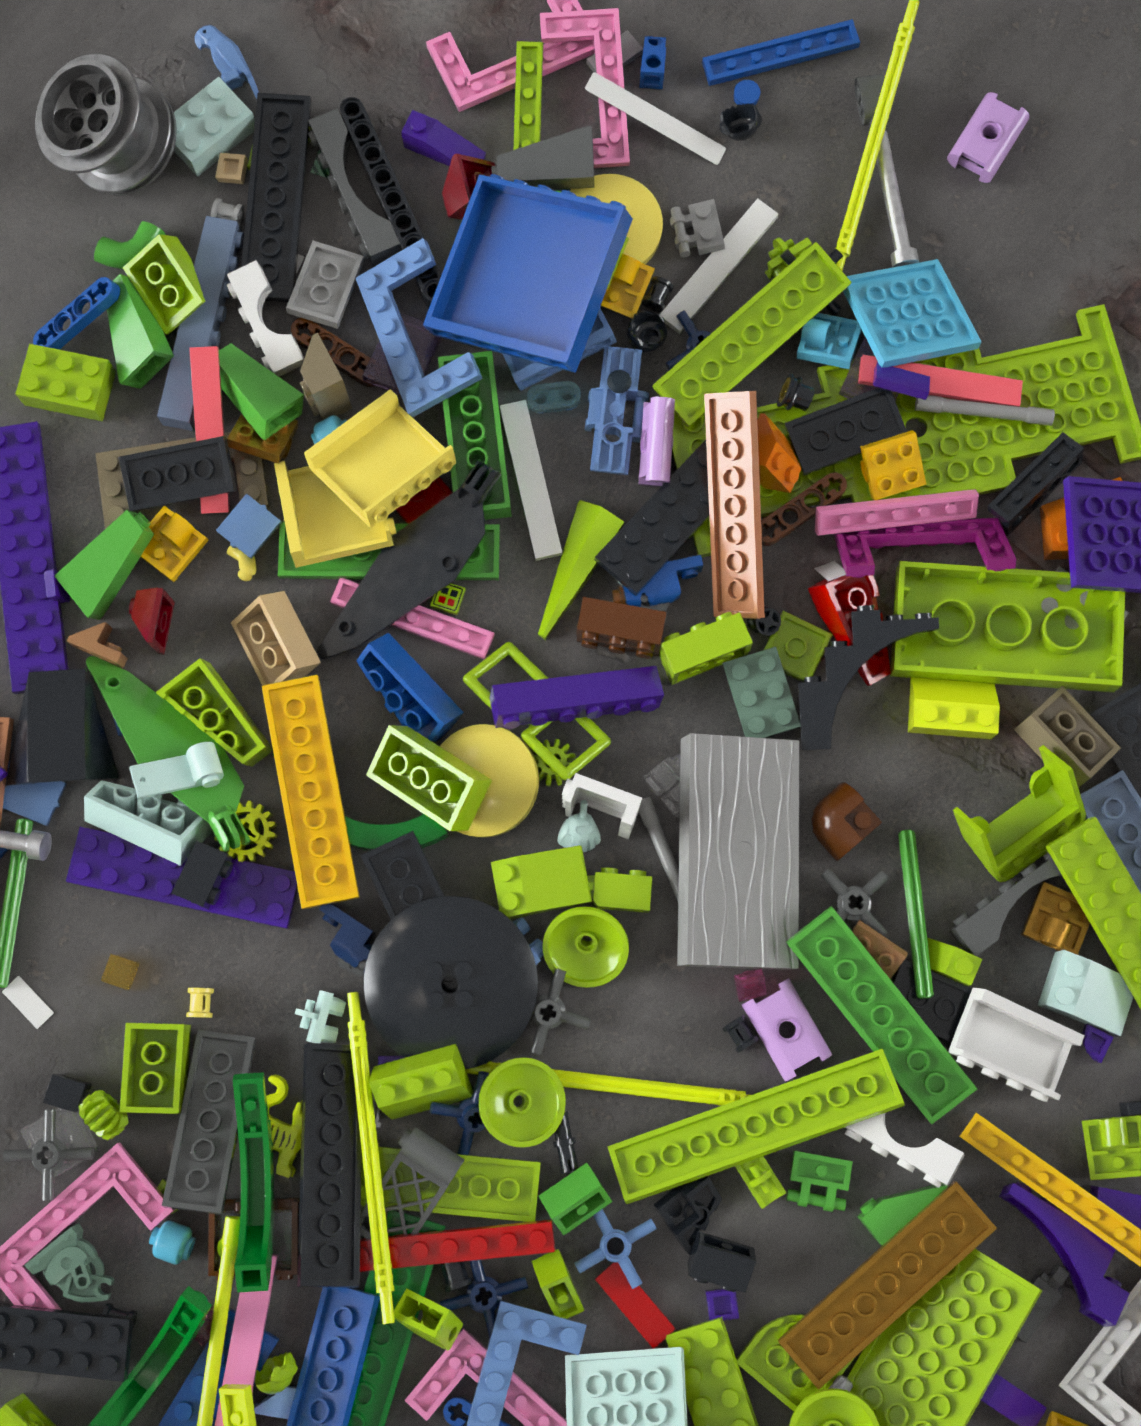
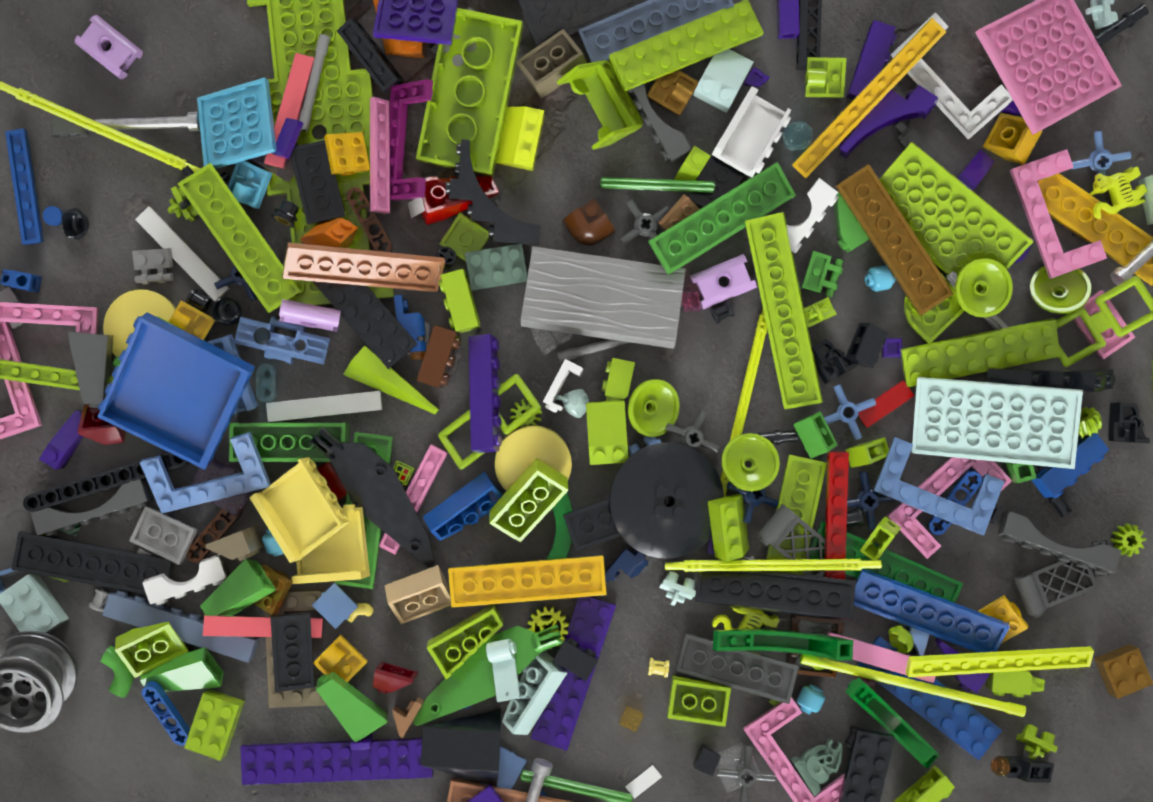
camera: 80 degrees left, 10 degrees up
(103, 1115) = (724, 737): lime gear -> none
(231, 168) = (66, 593): tan plate -> none
(655, 118) = (65, 285): white sticker -> none
(825, 1270) = (879, 278): none -> medium azure head
(1021, 1116) = (797, 136): none -> clear light blue hair

